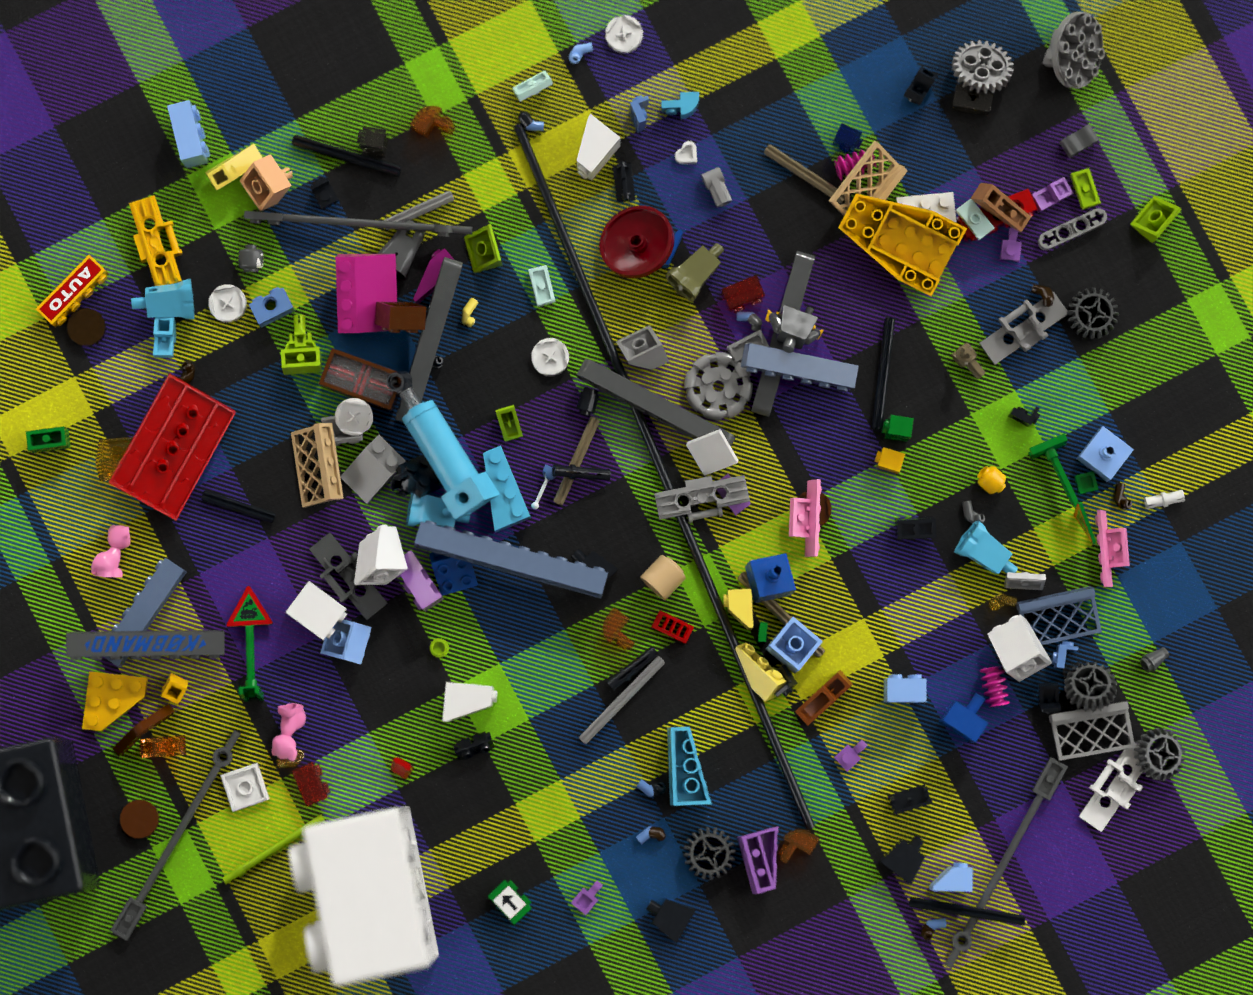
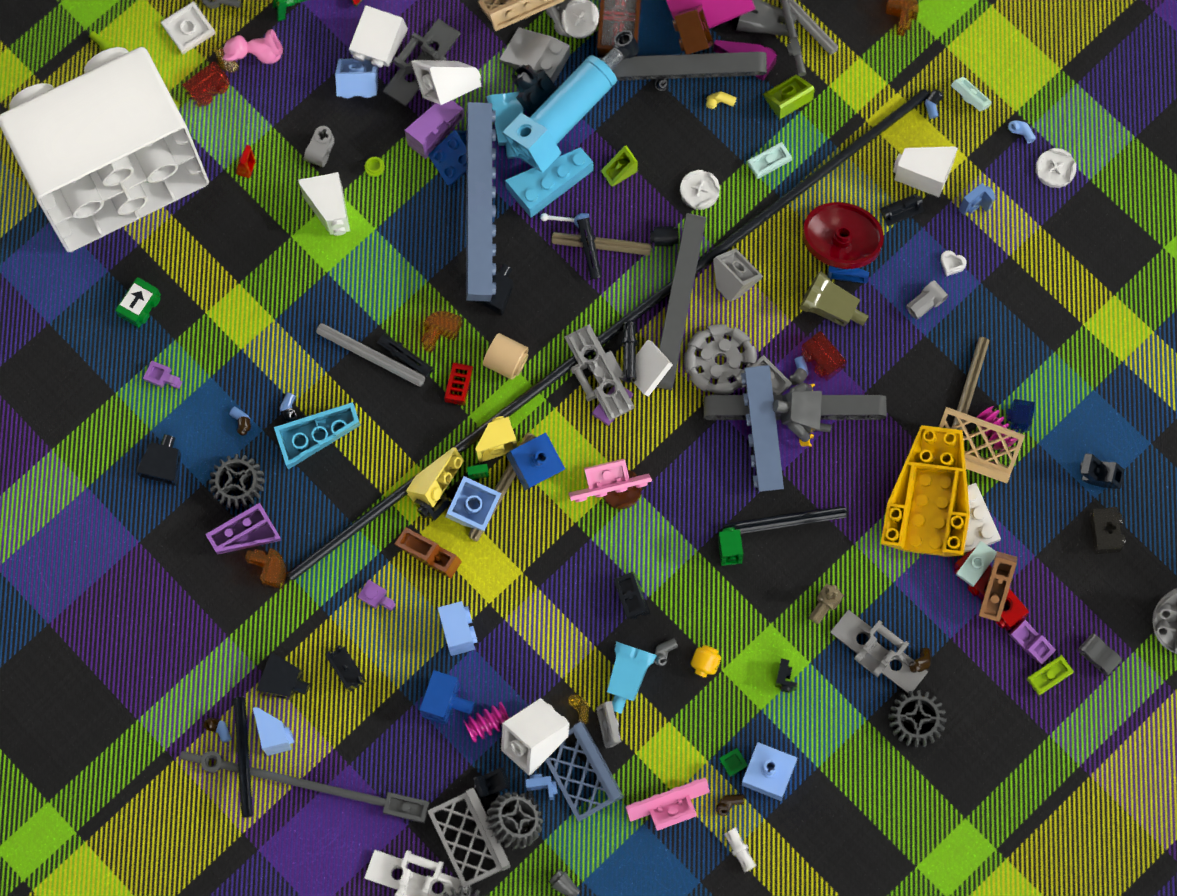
camera: 80 degrees right, 10 degrees down
(408, 696) = (318, 150): none -> light grey piece
(482, 744) = (279, 219): black hinge -> none
(686, 105) = (1001, 246): medium azure brick -> none
(690, 464) = (629, 351): none -> black pin
(889, 460) = (695, 550): yellow brick -> none
(982, 66) = (1144, 529): light grey gear -> none
(1011, 248) = (960, 616): medium lavender plate -> none
(1049, 449) = (756, 711): green piece -> none
(1071, 227) = (999, 676): light grey beam -> none
(1155, 218) = (1042, 758): lime slope -> none

